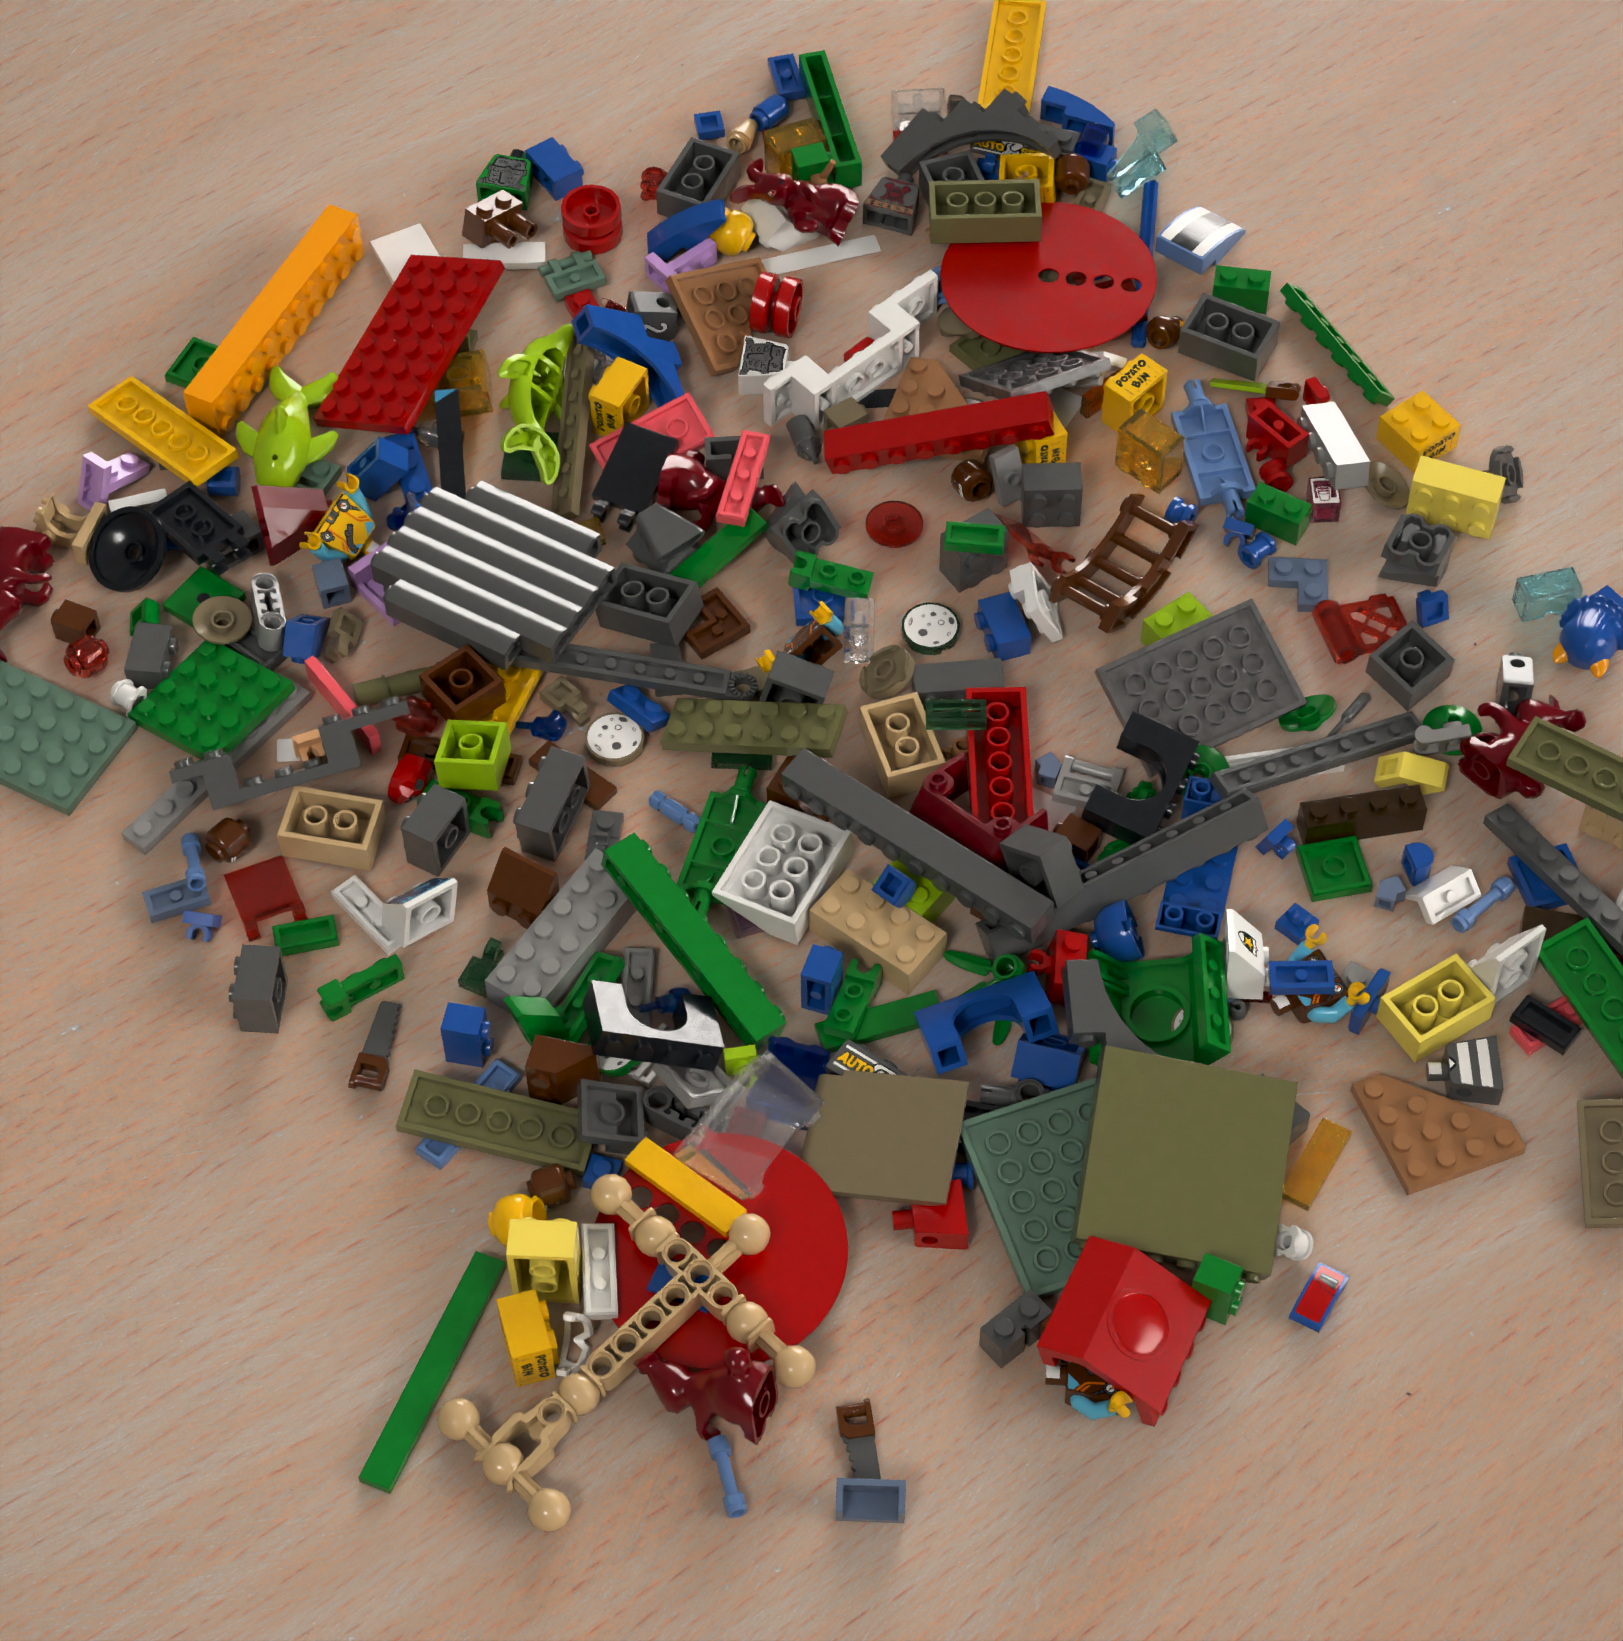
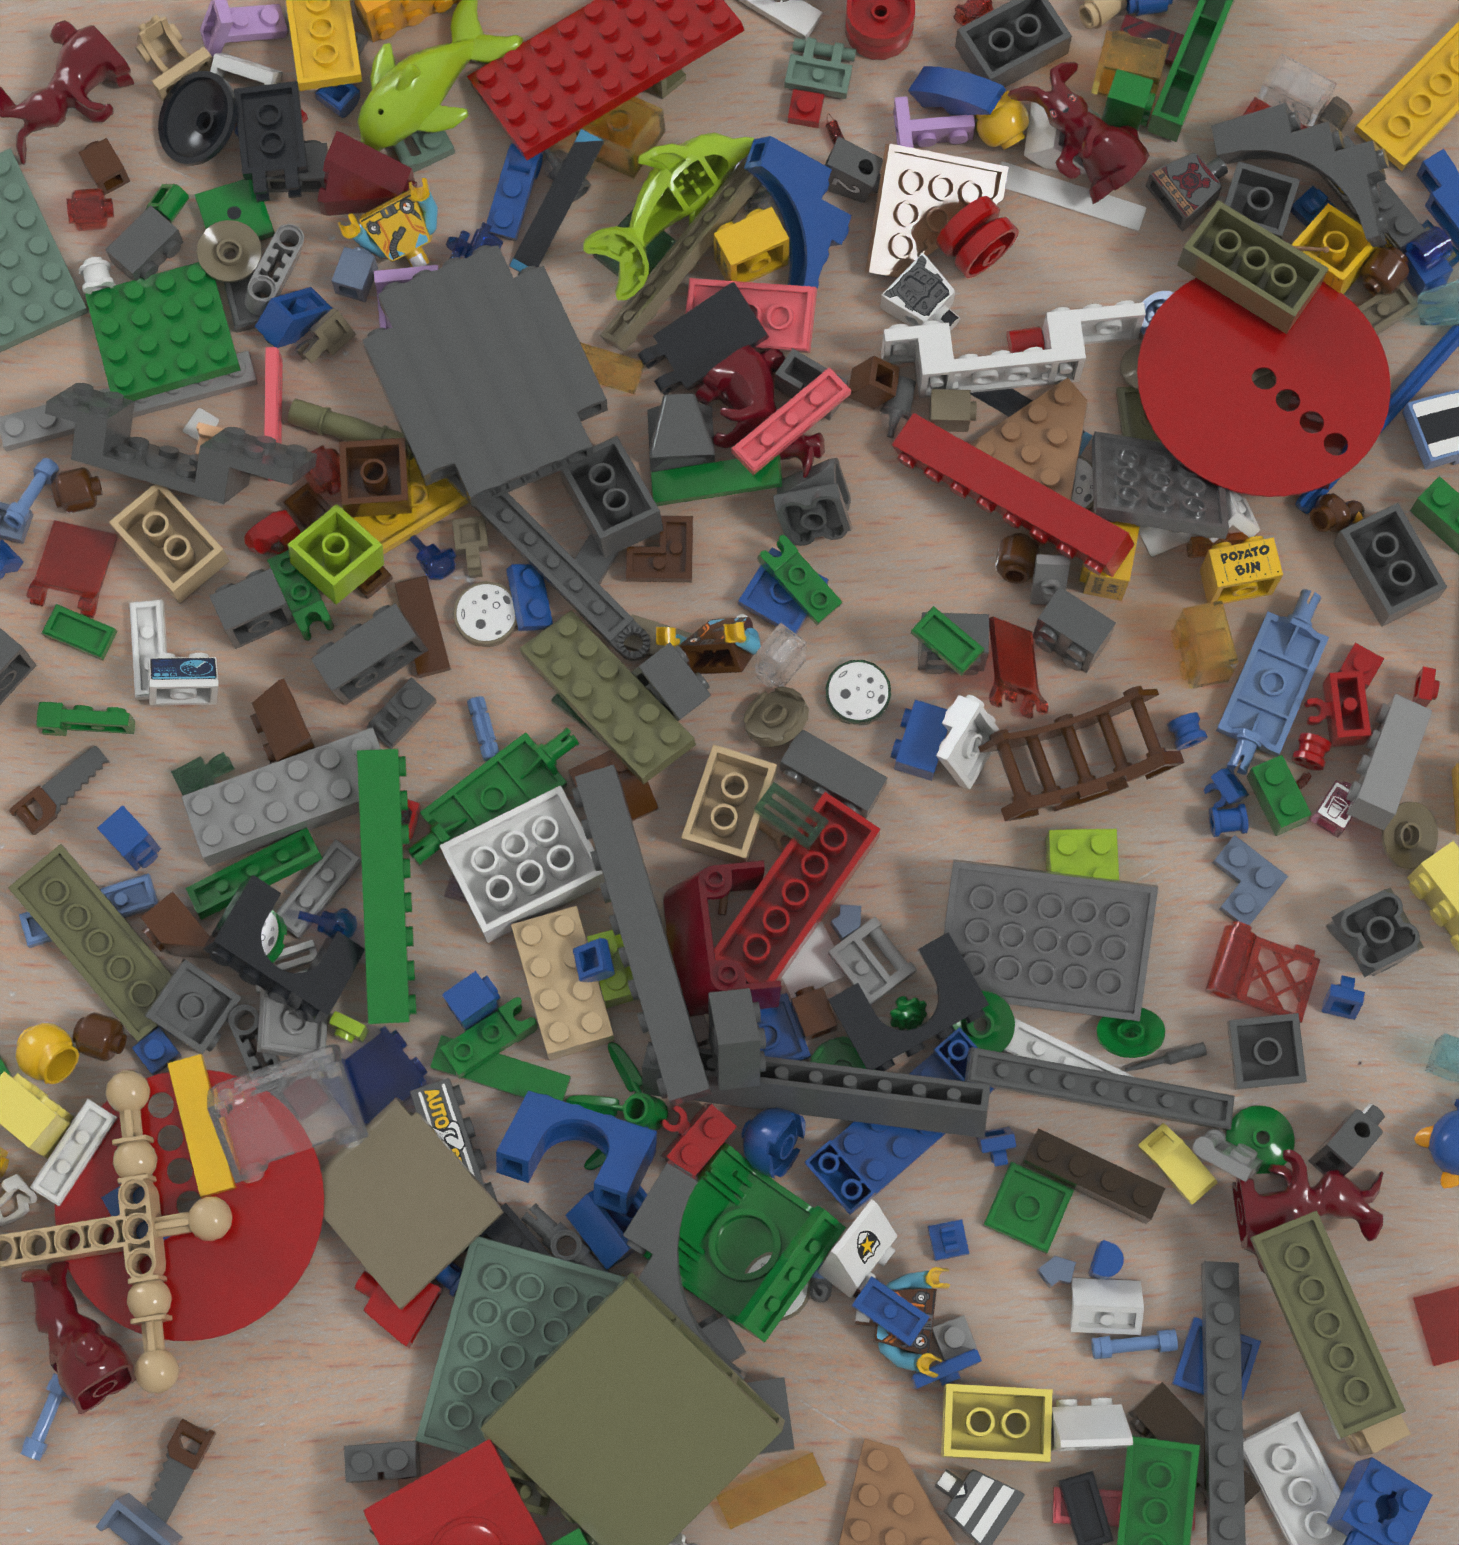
camera: 35 degrees right, 20 degrees up
(379, 467) = (474, 180): blue brick -> none
(537, 1017) = (193, 871): green slope -> none
(782, 428) = (874, 382): none -> reddish brown brick
(820, 178) = (1126, 120): medium nougat hand -> none
(890, 516) = (912, 543): clear red dish -> none
(1273, 389) = (1385, 648): piece -> none

